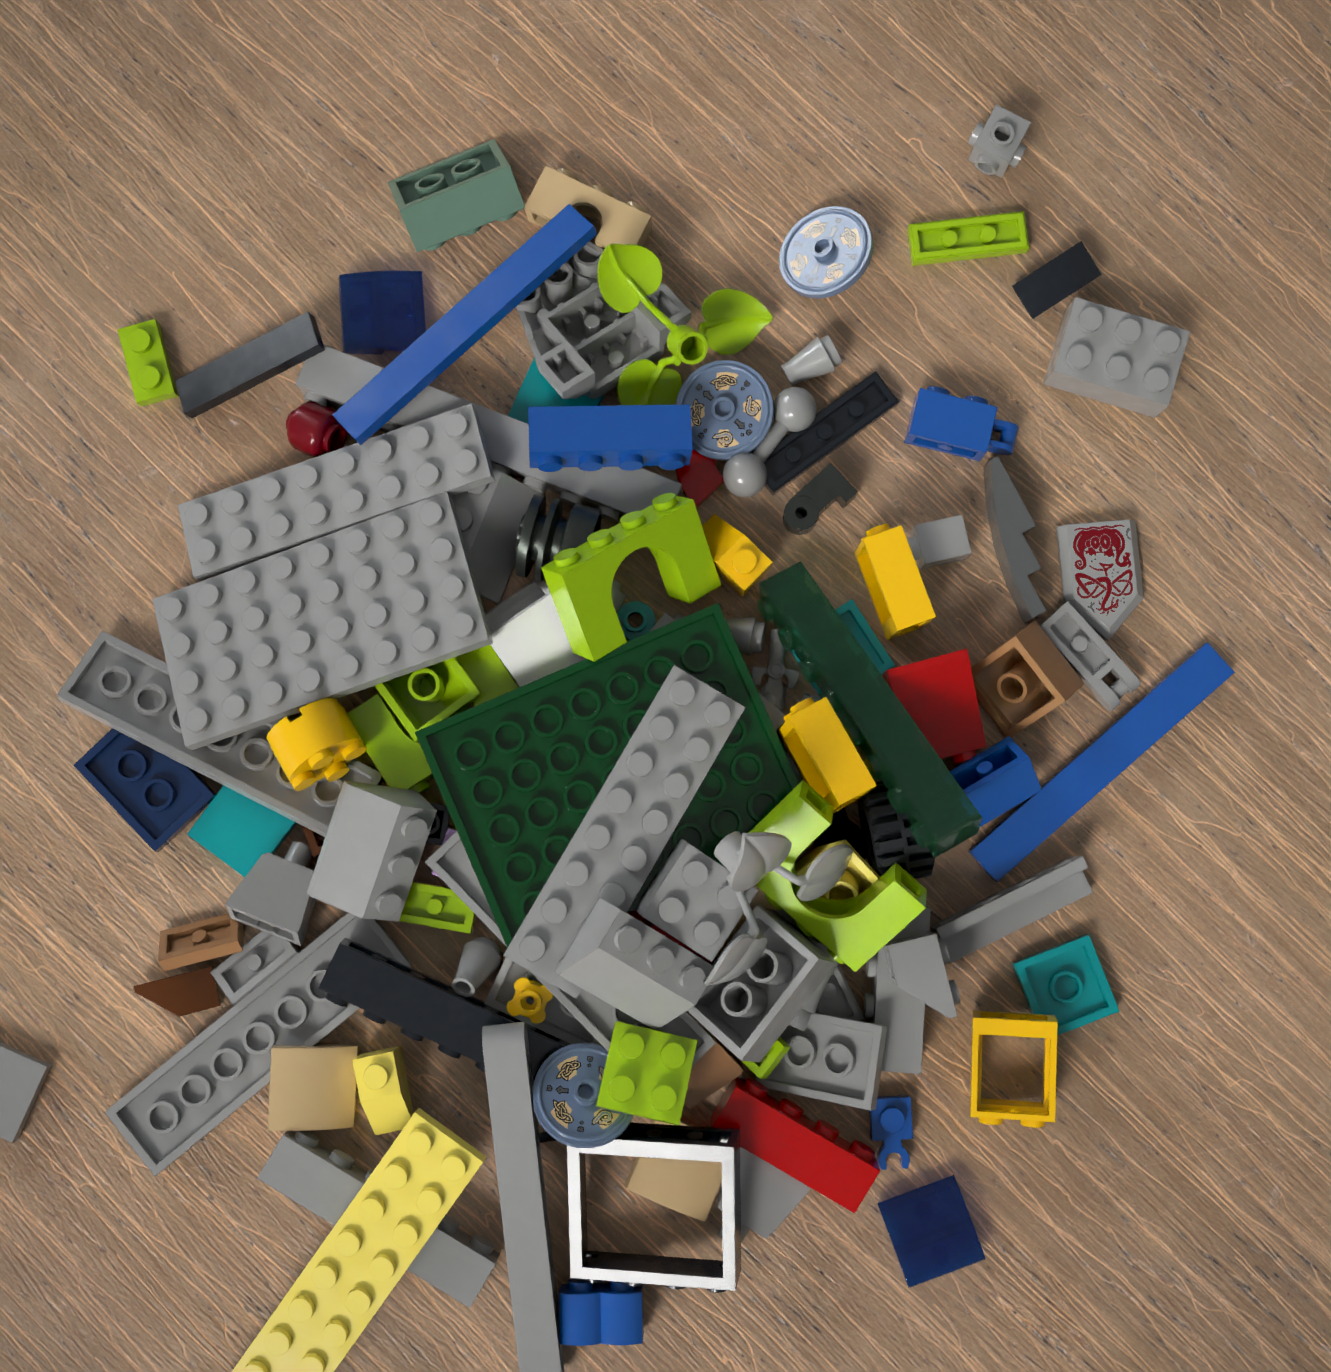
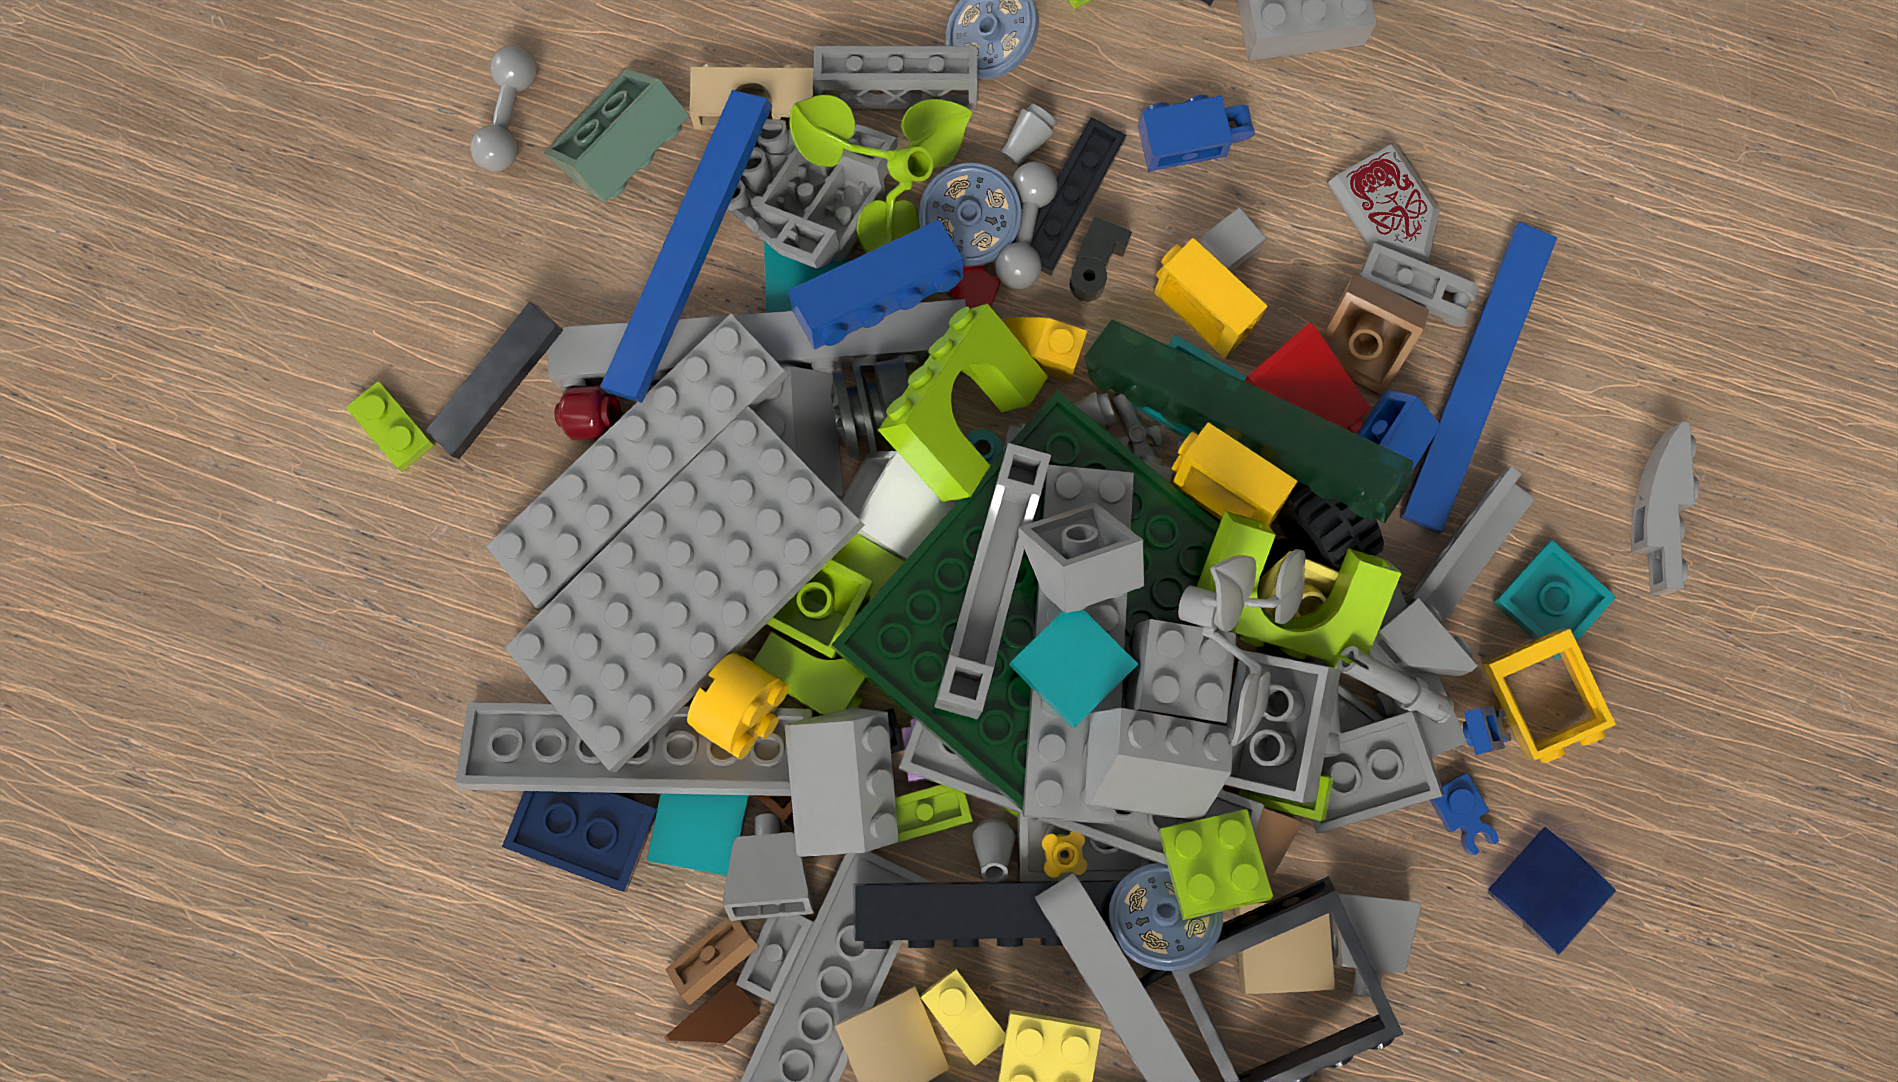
camera: 30 degrees left, 5 degrees down
(381, 311) = (596, 273): clear blue slope -> none
(394, 98) = (493, 144): none -> light grey piece
(573, 744) = (992, 582): none -> light grey arch
(606, 849) = (1073, 665): none -> teal tile
(658, 762) = (1083, 557): none -> light grey slope
(721, 253) = (895, 73): none -> light grey fence
(797, 1144) = (1386, 868): red brick -> none
(888, 1009) = (1409, 692): none -> light grey pin
(942, 1071) = (1485, 729): none -> blue plate
(1008, 524) = (1283, 199): dark grey slope -> none
(1209, 940) = (1662, 493): none -> light grey slope

